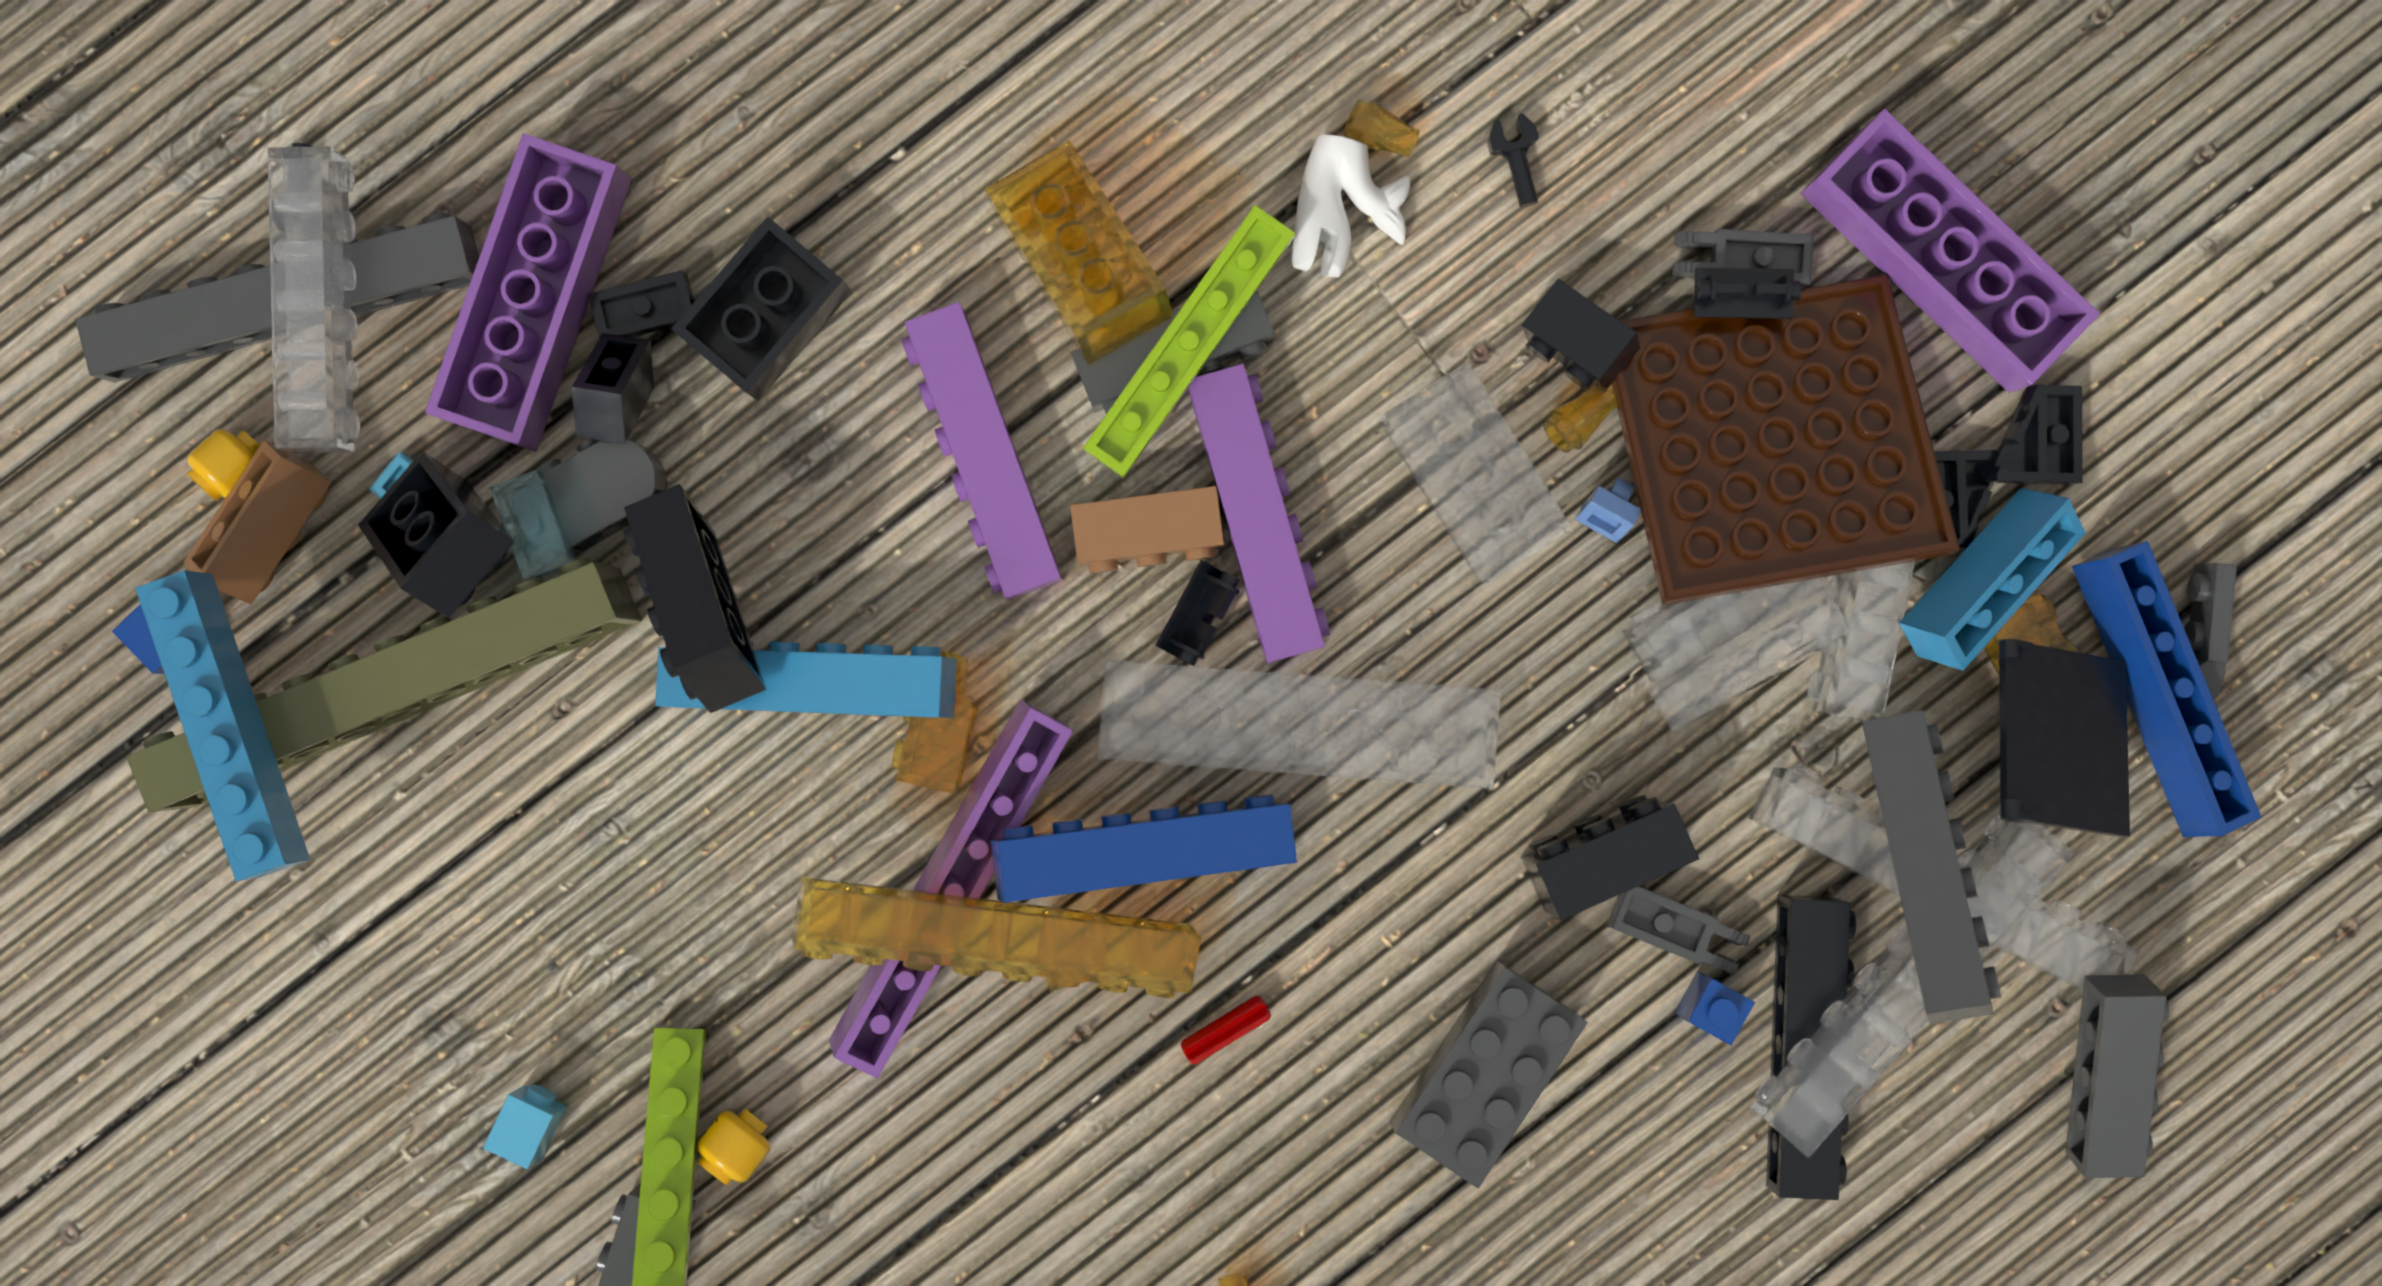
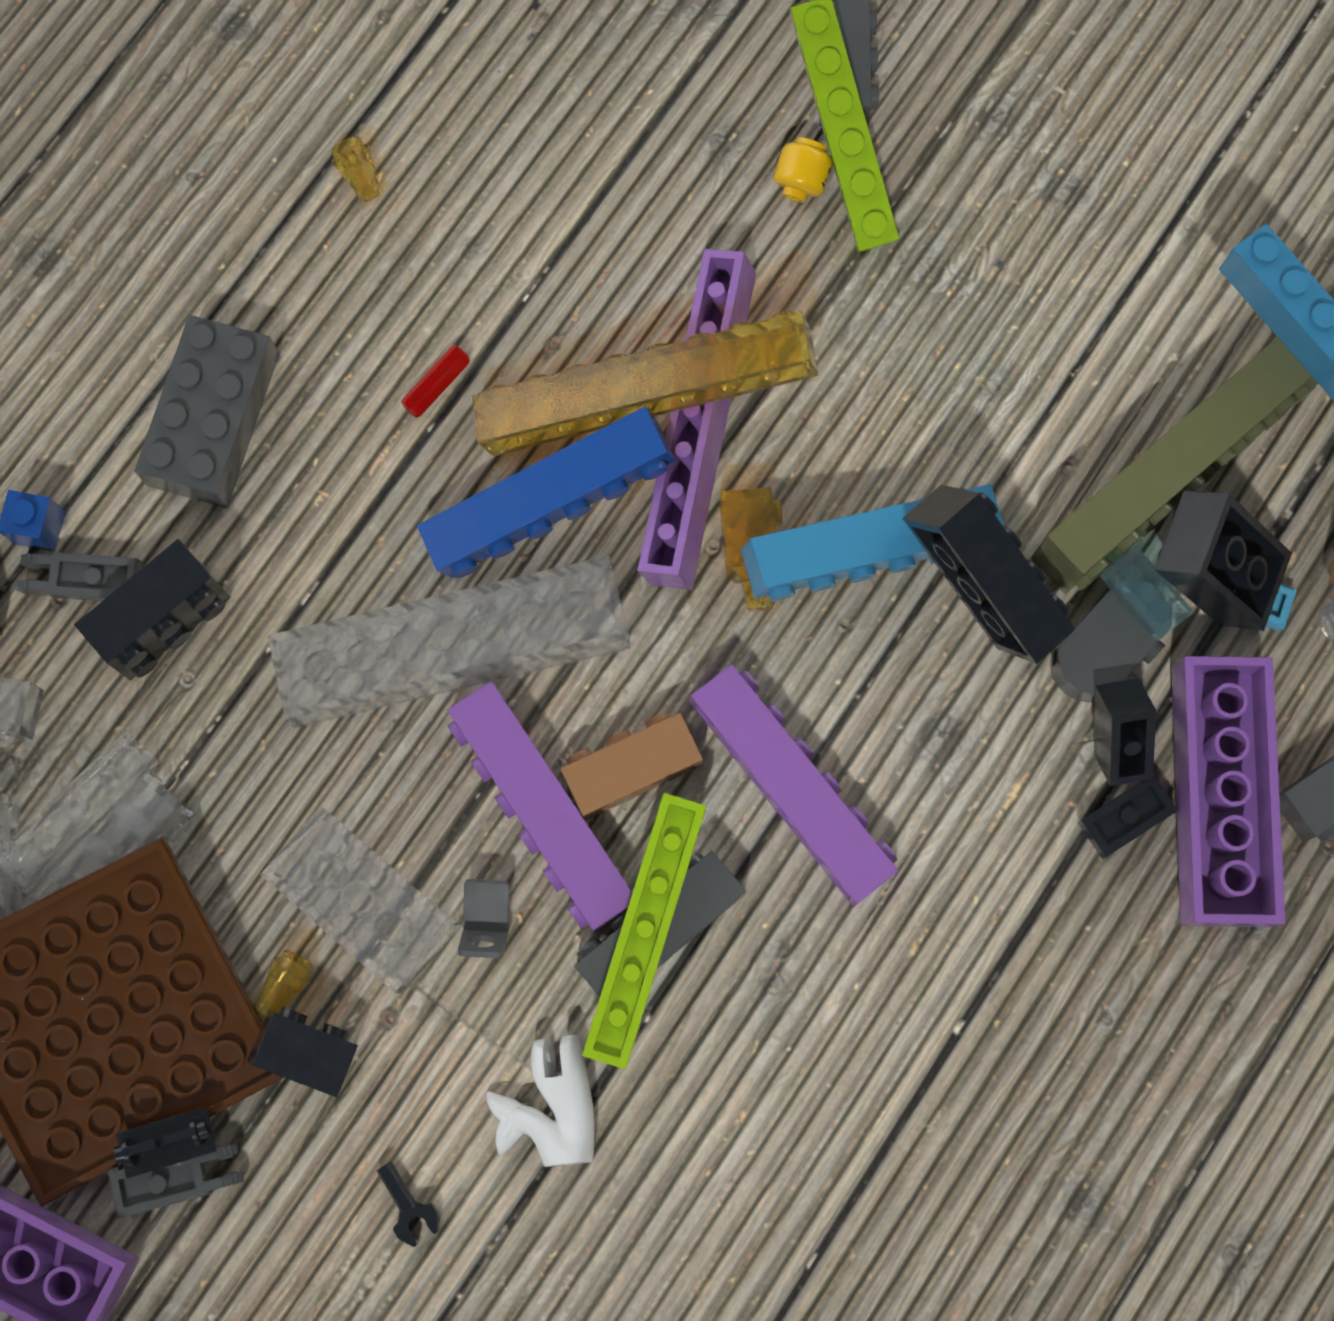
camera: 160 degrees right, 10 degrees down
(525, 1125) = (973, 135): medium azure brick -> none
(762, 309) = (1024, 843): black brick -> none
(1079, 252) = (768, 978): clear yellow brick -> none
(1190, 625) = (562, 723): black hinge -> none
(1352, 417) = (484, 918): none -> dark grey bracket
(1380, 129) = (540, 1188): clear yellow cone -> none
(1610, 511) = (234, 909): medium blue tile -> none

